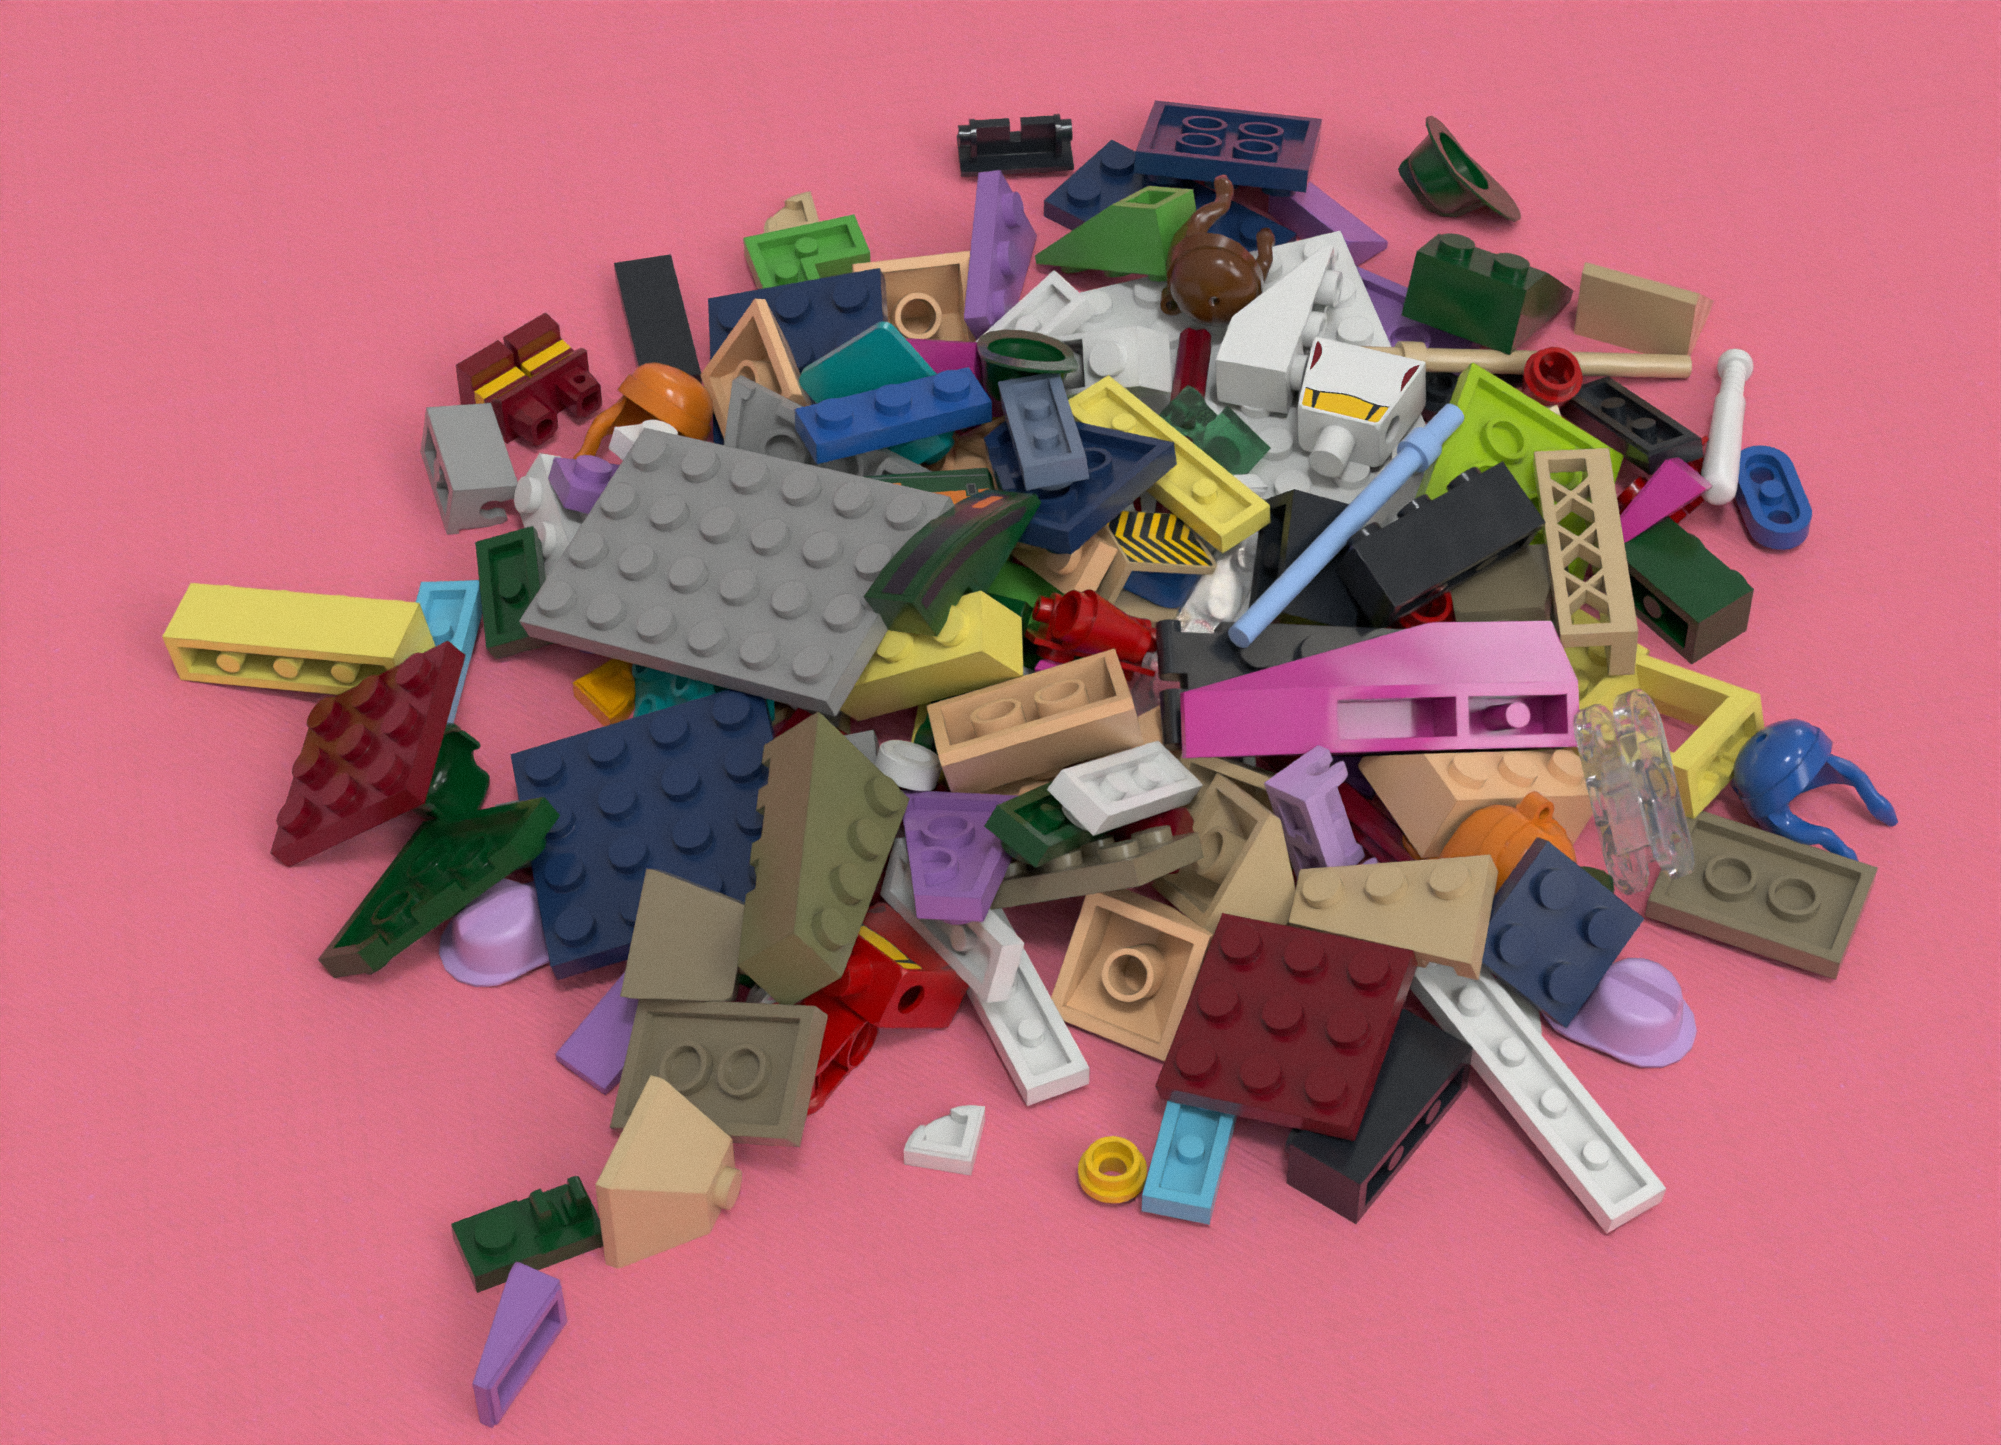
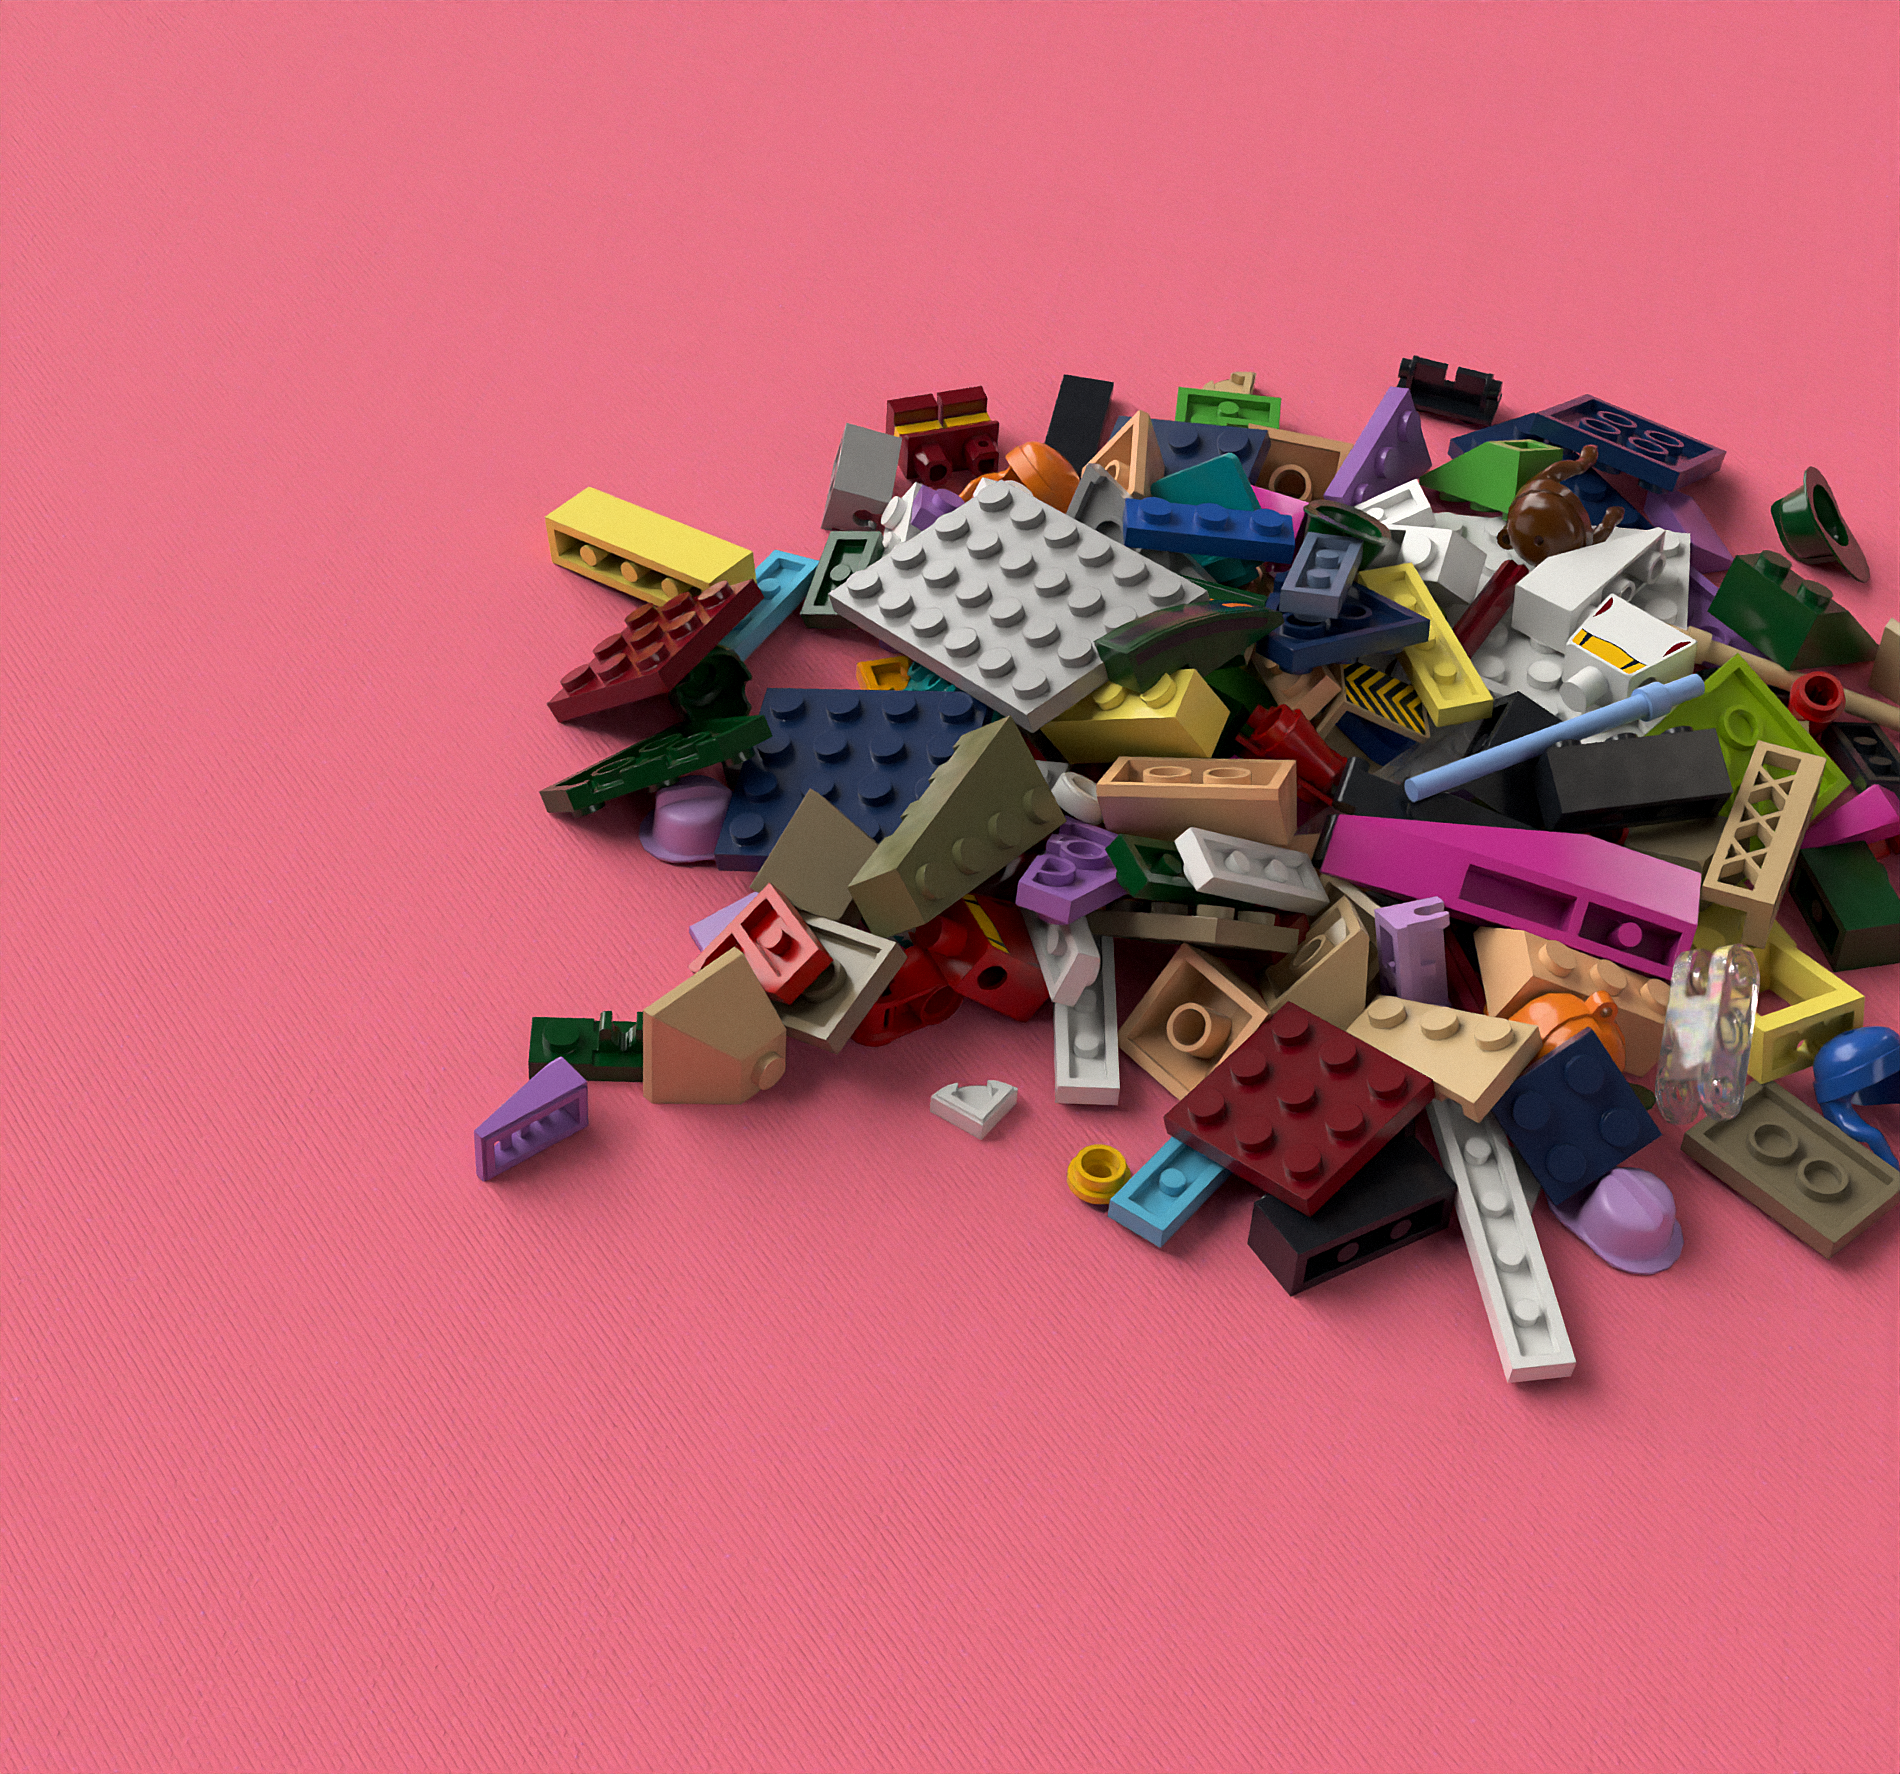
camera: 20 degrees right, 5 degrees down
(681, 1048) = (775, 943): none -> wing
(1220, 436) = (1490, 649): clear green plate -> none

